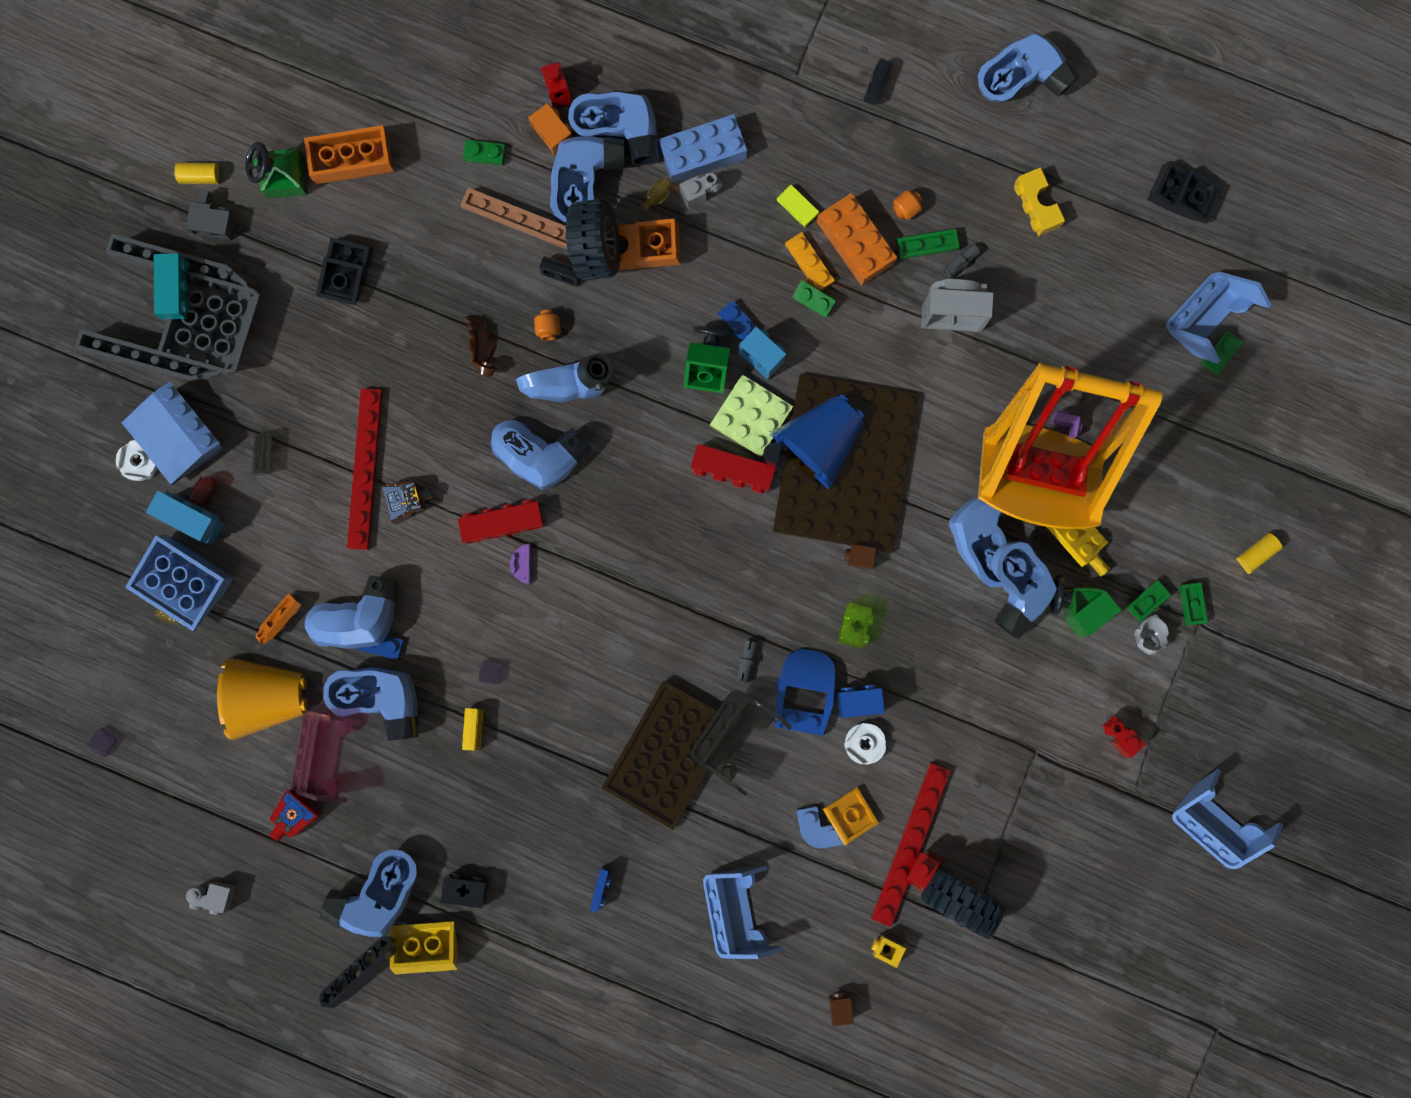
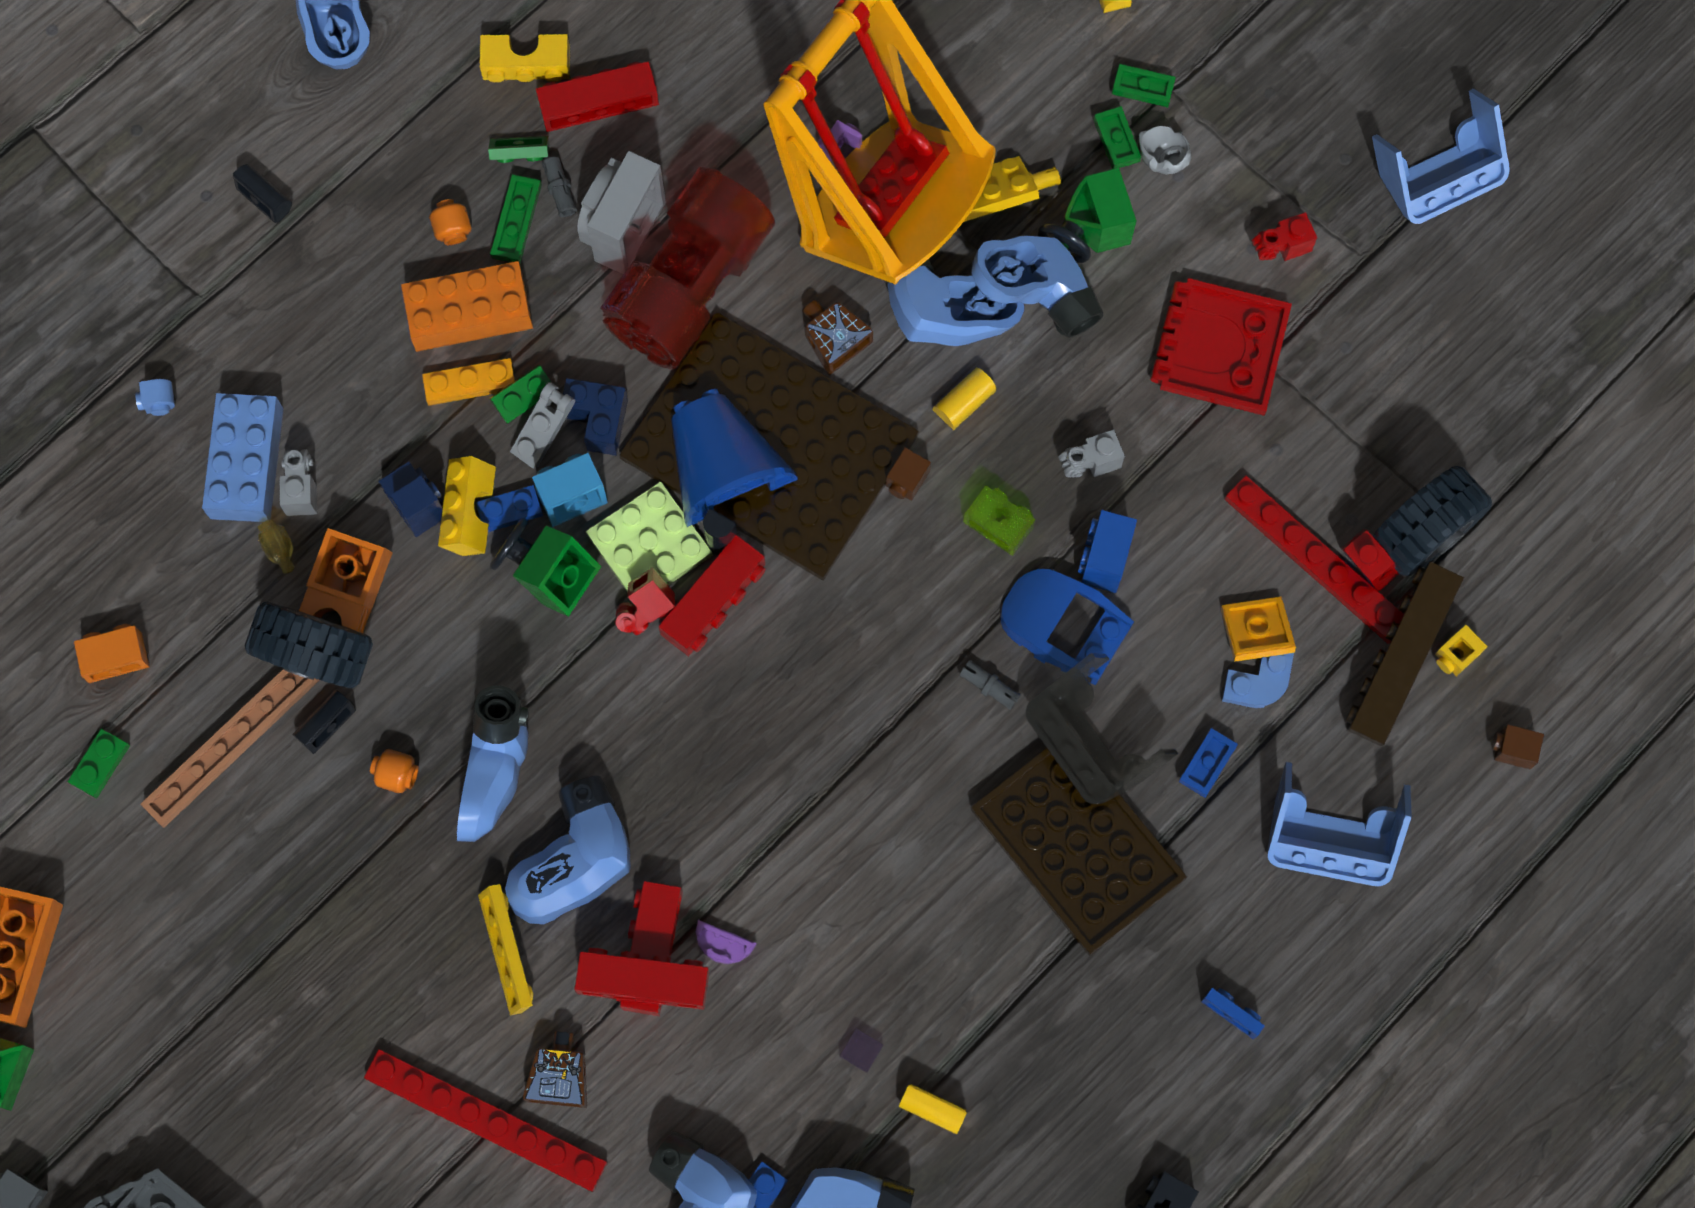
camera: 70 degrees left, 10 degrees down
(344, 271) = (178, 1034): black slope -> none
(445, 455) = (505, 950): none -> yellow plate
(474, 525) = (641, 979): none -> red brick
(480, 346) = (382, 876): reddish brown plant -> none
(556, 83) = (49, 620): red torso -> none
(576, 167) = (194, 641): medium blue piece -> none
(618, 117) = (144, 550): medium blue piece -> none
(711, 430) = (651, 601): none -> red brick
(712, 296) = (460, 527): none -> yellow arch
(718, 260) = (413, 498): none -> dark blue brick
(719, 79) = (155, 397): none -> medium blue plate
(751, 816) = (1208, 763): none -> blue plate
(796, 319) = (542, 426): none -> light grey plate
(797, 206) = (382, 365): neon yellow tile -> none
(824, 351) = (604, 411): none -> dark blue brick
(853, 744) = (1164, 588): white plate -> none
(870, 916) = (1404, 654): none -> dark brown brick
(923, 671) = (1099, 453): none -> light grey brick
(927, 572) = (965, 398): none -> yellow brick
(935, 474) = (835, 334): none -> reddish brown torso
(964, 369) = (713, 234): none -> clear red cylinder
(976, 225) = (508, 149): none -> green plate
(1032, 258) = (597, 96): none -> red brick
(1032, 722) = (1221, 345): none -> red hinge

